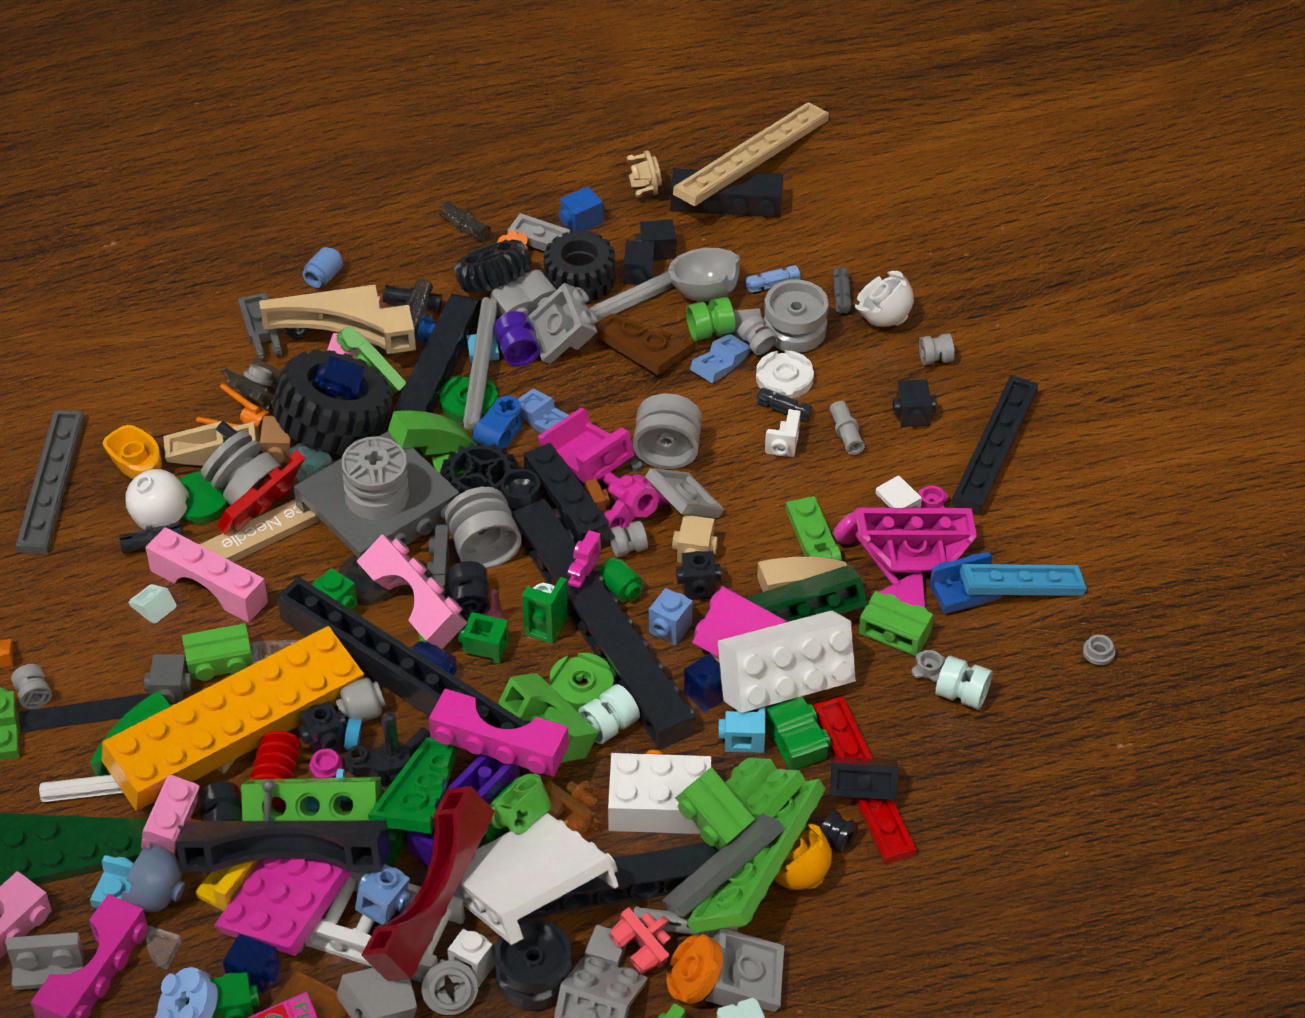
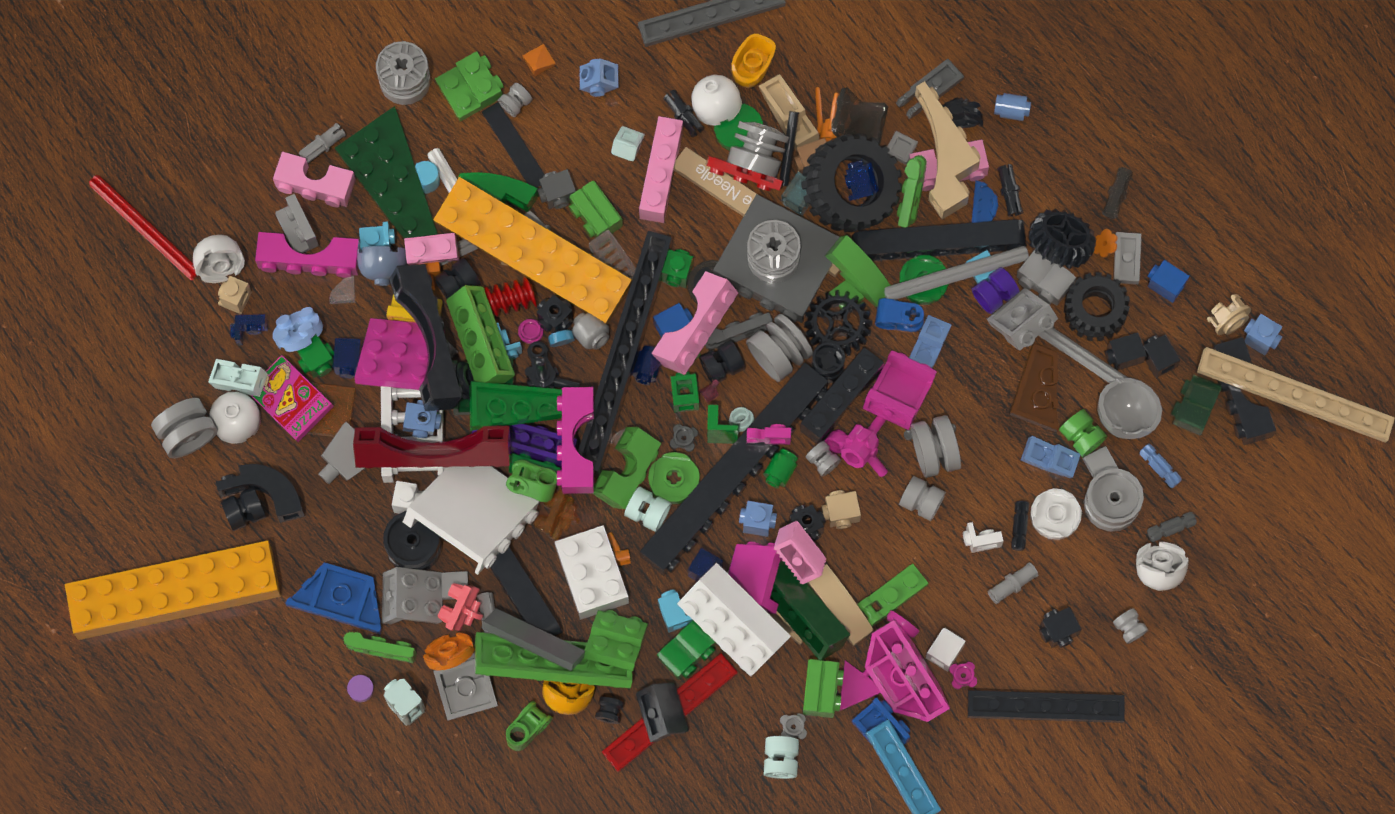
camera: 70 degrees right, 25 degrees up
(59, 594) = (598, 77): none -> medium blue brick
(69, 800) = (428, 176): none -> medium azure brick
(259, 375) = (862, 115): light grey plate -> none
(268, 786) = (465, 305): dark grey hinge -> none
(394, 619) = (672, 319): none -> blue brick
(418, 302) = (992, 199): clear smoke pin -> none
(439, 999) = (368, 493): light grey gear -> none
(537, 652) = (689, 433): none -> dark grey plate
(599, 496) = (852, 418): dark orange plate -> none
(675, 154) = (1263, 334): none -> medium blue brick
(684, 493) = (881, 483): light grey tile -> none
(714, 809) = (574, 615): bright green brick -> none
(719, 466) = (922, 498): none -> light grey wheel
(723, 228) = (1196, 404): none -> clear green brick
(736, 573) = (799, 552): none -> bright pink brick
(757, 334) = (1081, 471): light grey wheel -> none
(821, 920) = (530, 723): none -> bright green piece

